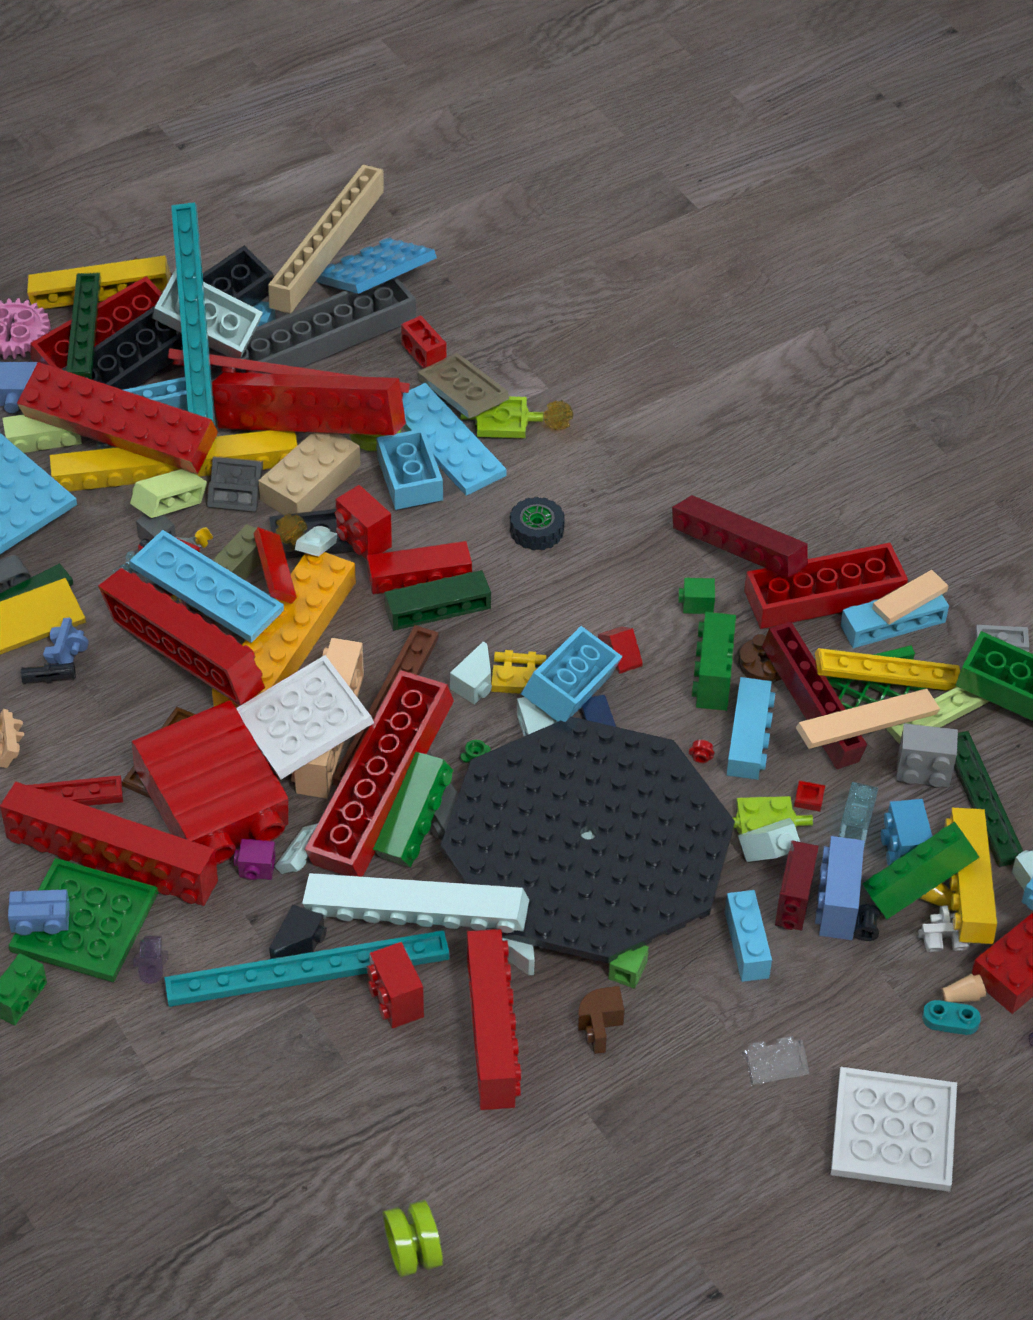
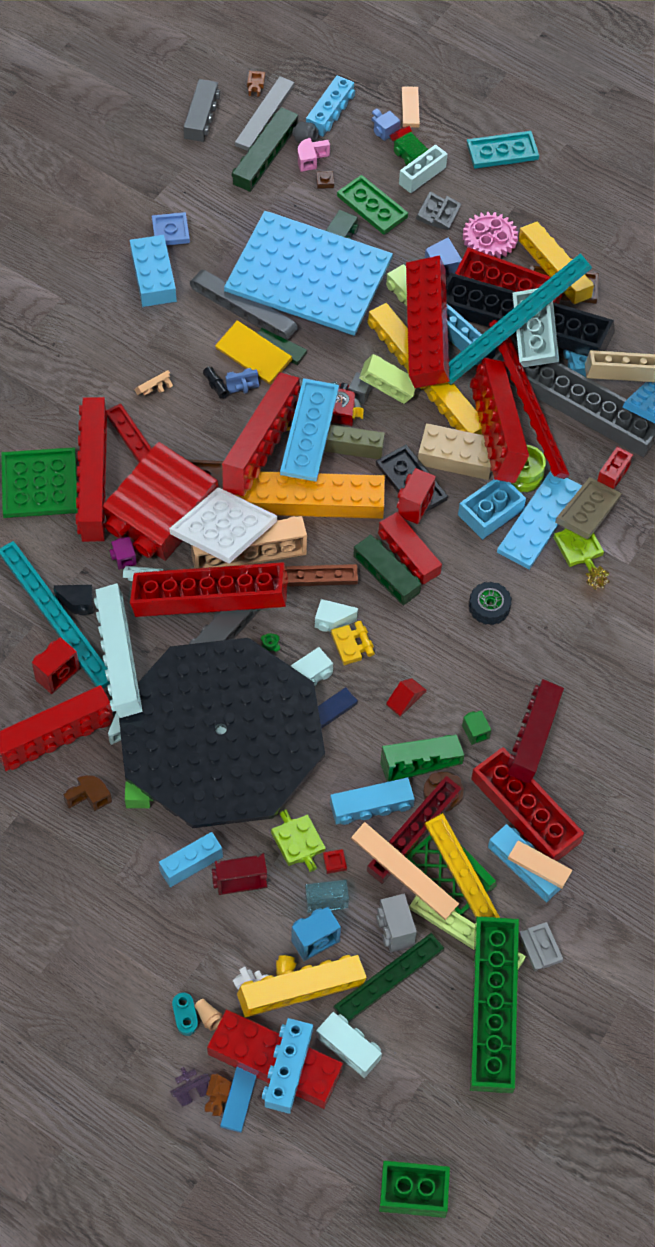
camera: 65 degrees right, 10 degrees up
(38, 911) = (26, 454): medium blue brick -> none
(84, 324) = (496, 267): dark green tile -> none
(150, 959) = (22, 527): clear purple hips -> none
(235, 483) = (423, 411): dark grey slope -> none
(275, 565) = (350, 460): red tile -> none
(291, 528) = (393, 459): clear yellow gear -> none
(316, 541) = (388, 476): light aqua plate -> none
(413, 809) = (193, 620): green brick -> none
(571, 675) = (350, 670): medium azure brick -> none
(702, 751) = (337, 778): red plate -> none
(768, 841) = (275, 847): light aqua slope -> none
(777, 1061) = (99, 911): clear bracket -> none
(839, 887) = (252, 903): medium blue brick -> none
(867, 923) = (238, 932): black bush -> none
(894, 1129) = (76, 1004): white plate -> none
(920, 870) = (283, 948): green brick -> none

